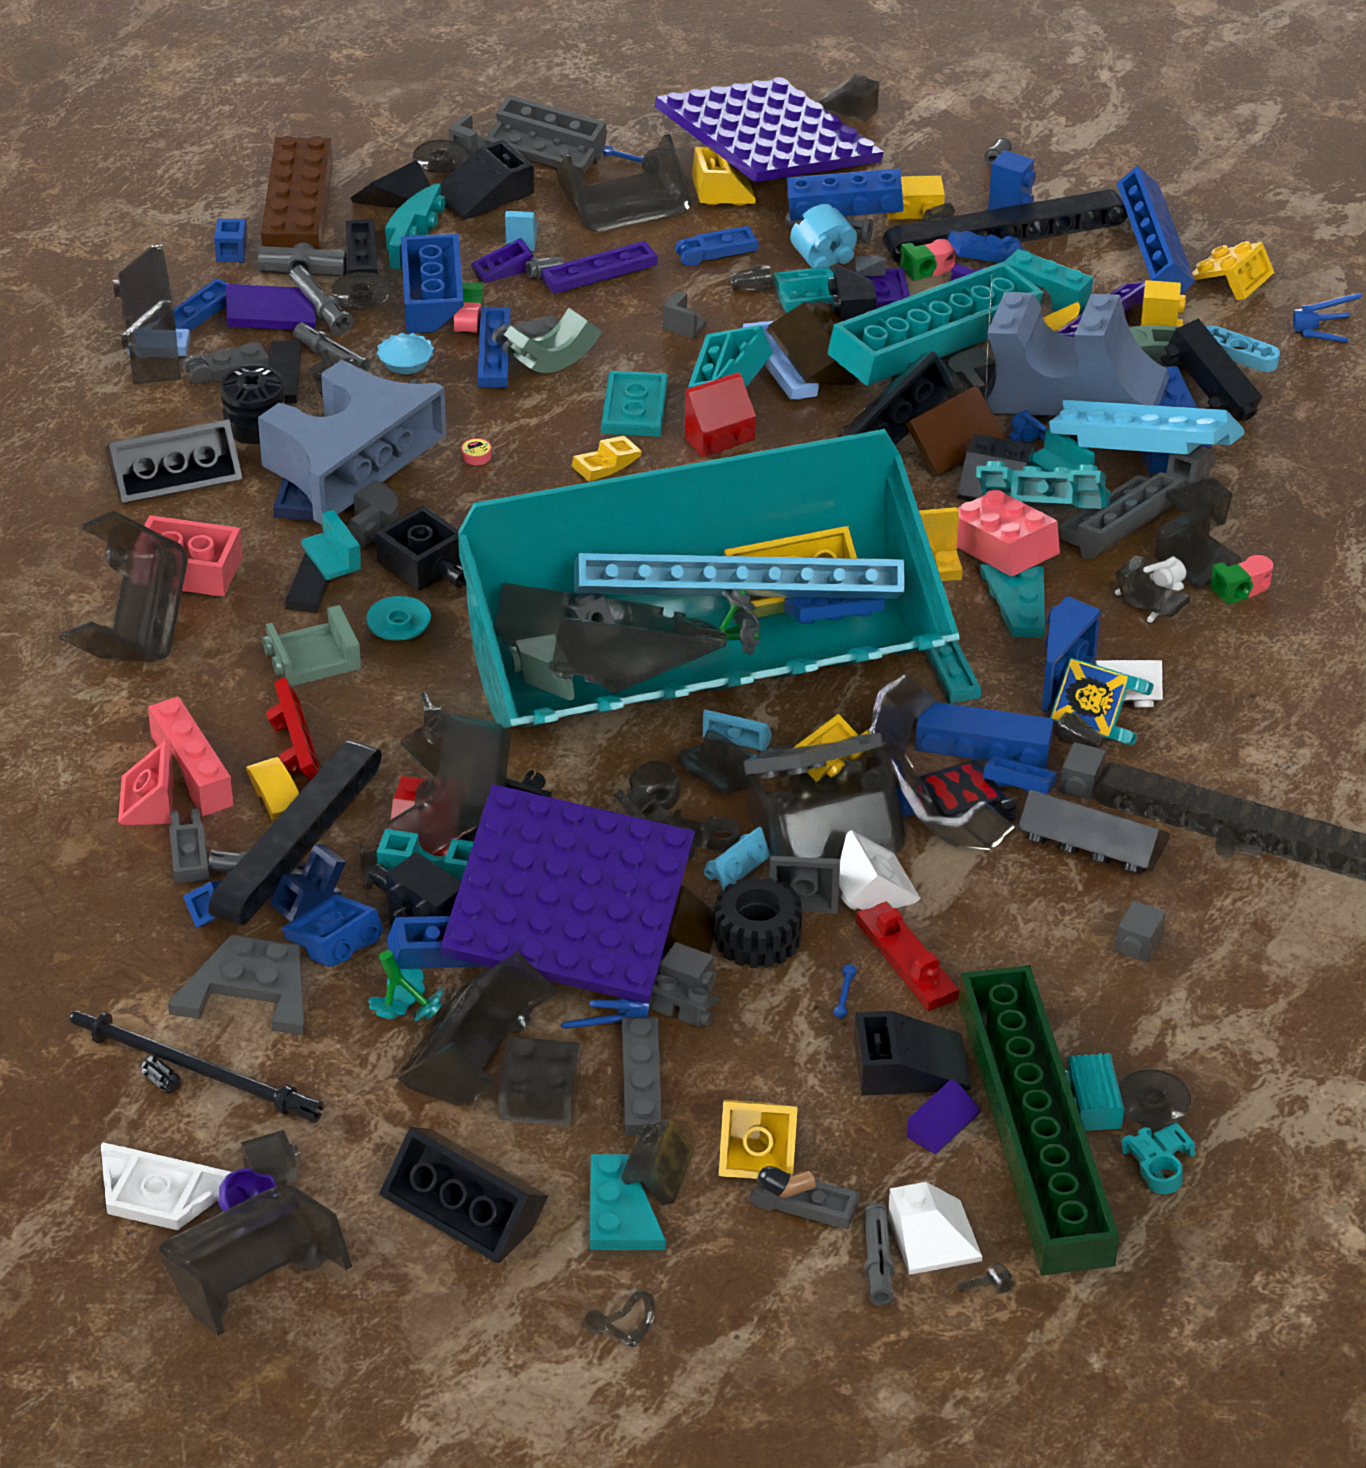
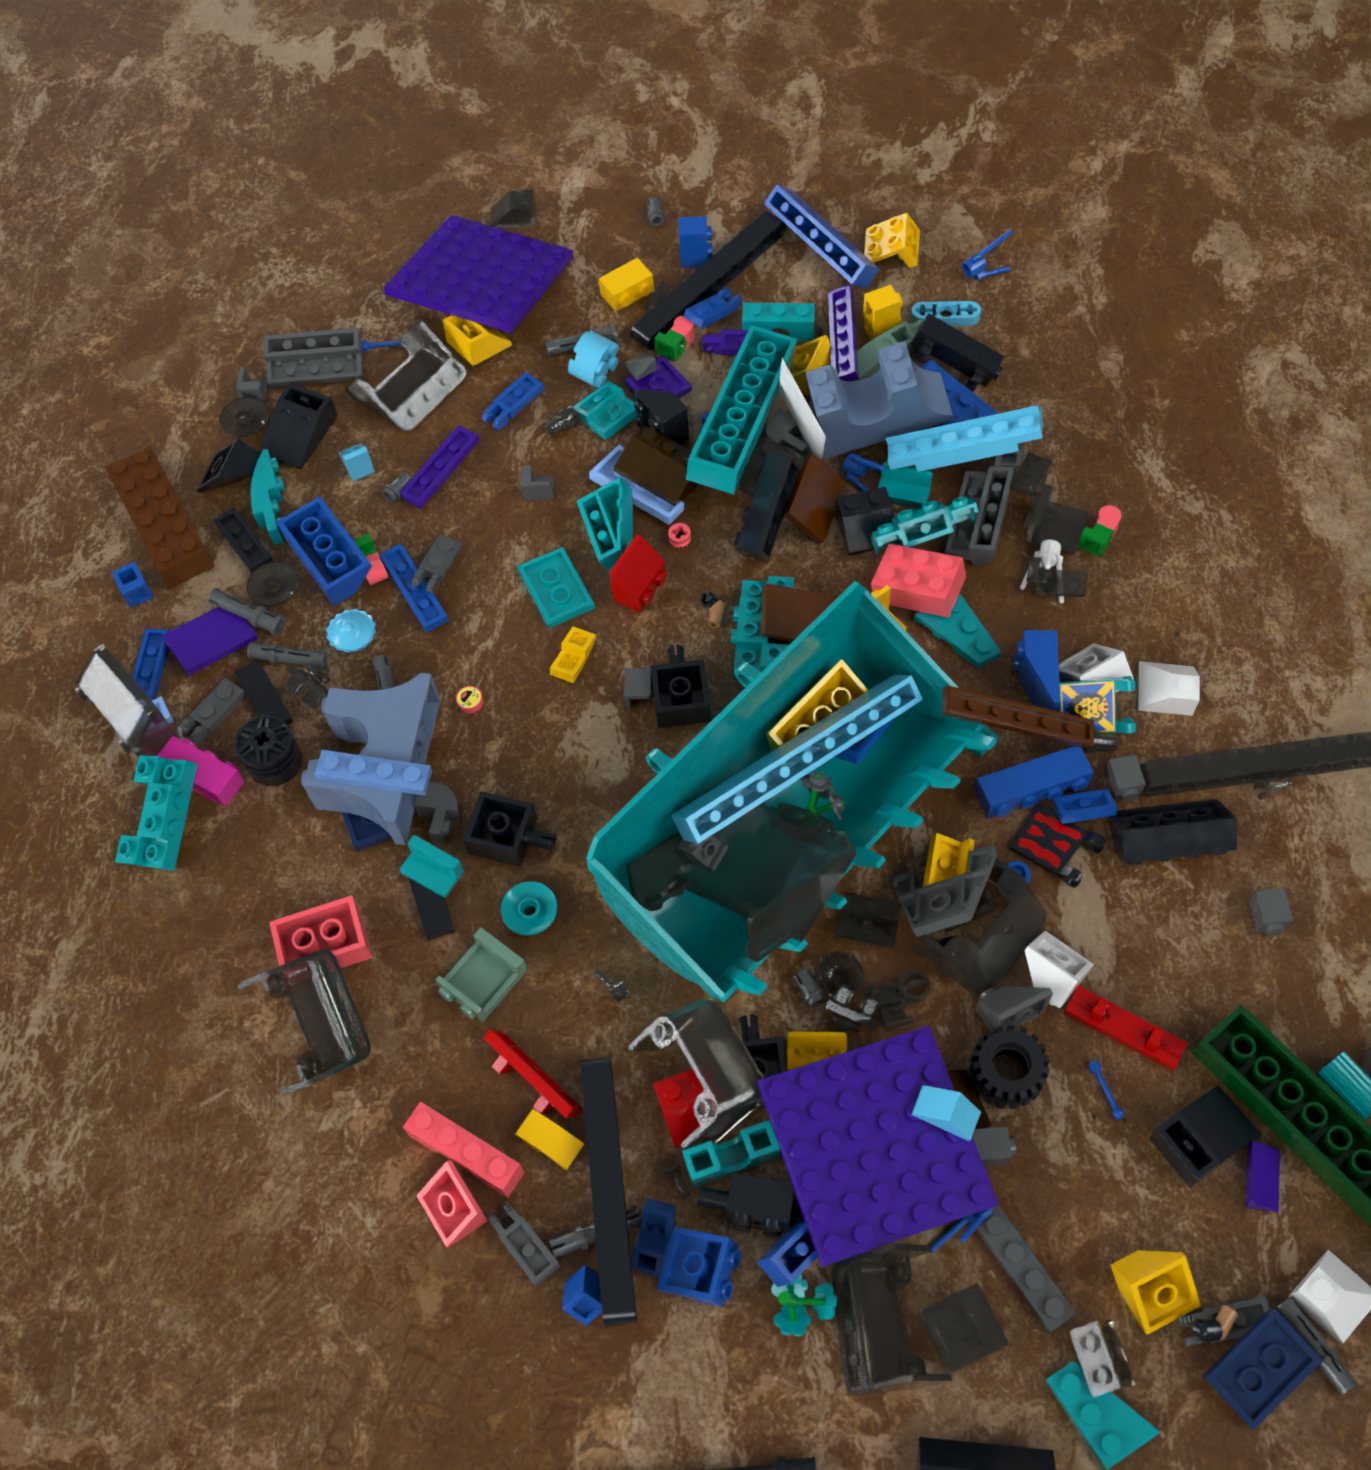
camera: 25 degrees left, 20 degrees up
(134, 394) = (162, 815): none -> teal bracket
(173, 461) = (240, 842): slope -> none
(177, 394) = (213, 777): none -> dark pink brick
(251, 971) = (660, 1344): dark grey wing -> none
(302, 254) = (204, 577): dark grey piece -> none
(329, 431) = (373, 772): none -> medium blue plate
(510, 258) = (362, 484): dark purple slope -> none
(533, 662) = (700, 918): sand green slope -> none
(559, 347) = (464, 563): sand green arch -> none
(616, 780) = (813, 994): none -> dark grey pin
(656, 893) = (947, 1111): none -> medium azure slope
(693, 1001) = (1012, 1175): dark grey hinge -> none
(738, 730) = (861, 876): medium azure slope -> none
(739, 859) = (946, 994): medium azure hinge -> none
(794, 412) = (685, 538): none -> coral bush
(805, 1235) = (1262, 1368): none -> dark blue plate
(847, 192) = (585, 312): blue brick -> none
(893, 717) = (1019, 861): clear smoke windscreen -> none
(995, 651) = (1017, 717): none -> reddish brown tile
(1198, 730) = (1168, 688): none -> white slope

